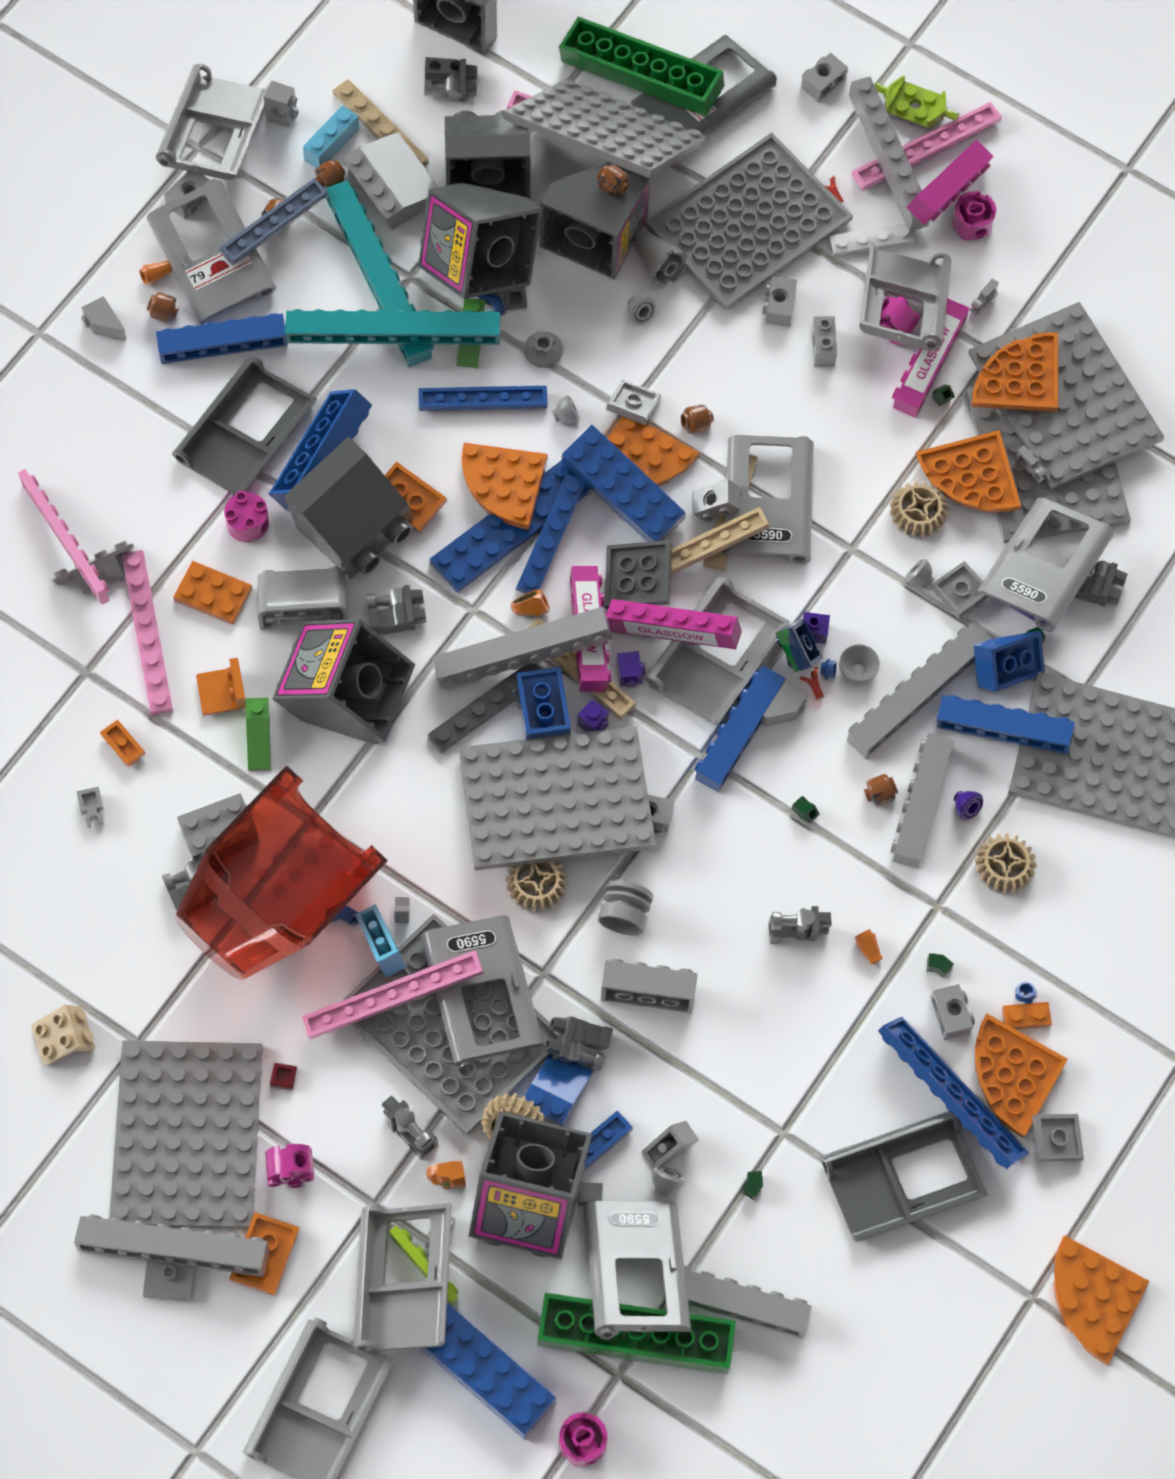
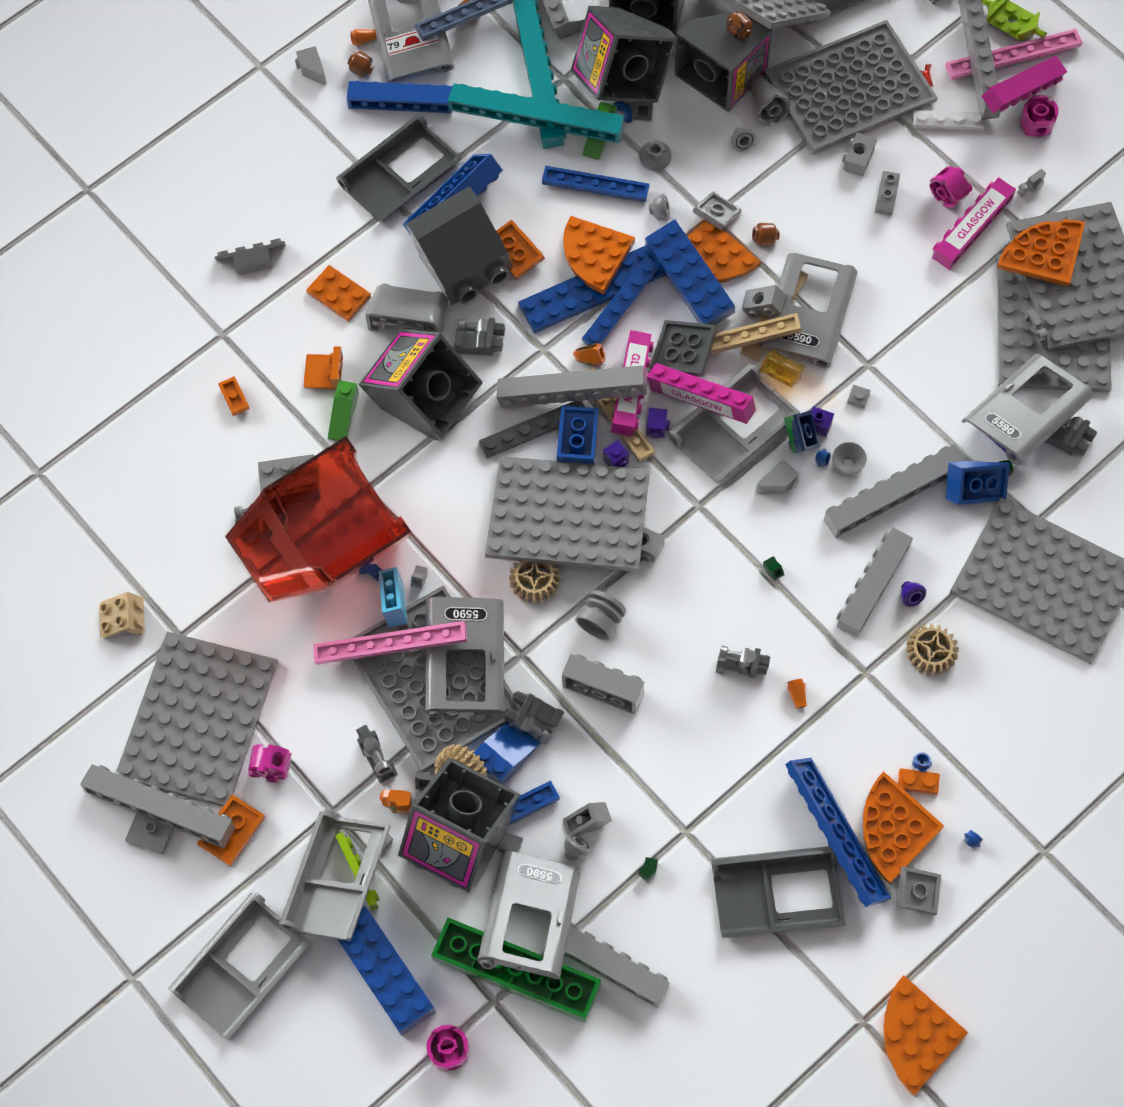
camera: 20 degrees right, 0 degrees up
(68, 541) = (234, 229): bright pink plate -> none
(90, 803) = (194, 439): light grey plate -> none
(147, 632) = (278, 314): bright pink plate -> none
(246, 516) = (380, 238): dark pink brick -> none
(283, 1076) = (287, 689): dark red tile -> none
(475, 1144) = (423, 779): none -> dark grey plate
(739, 729) = (734, 491): blue brick -> none
(757, 574) = (782, 368): none -> clear yellow brick
(814, 683) = (808, 467): clear red bar -> none
(851, 588) = (858, 396): none -> light grey plate
(881, 790) = (841, 566): dark orange head -> none
(914, 281) = (972, 157): light grey piece -> none
(917, 520) = (936, 334): tan gear -> none
(920, 574) = (920, 396): light grey brick -> none
(939, 964) = (854, 721): dark green piece -> none
(943, 394) = (976, 255): dark green piece -> none
(952, 1025) = (855, 751): light grey brick -> none
(958, 589) = (948, 416): light grey plate -> none
(972, 473) = (985, 323): orange plate -> none
(1005, 724) = (961, 534): blue brick -> none
(1102, 1066) = (972, 839): none -> blue plate

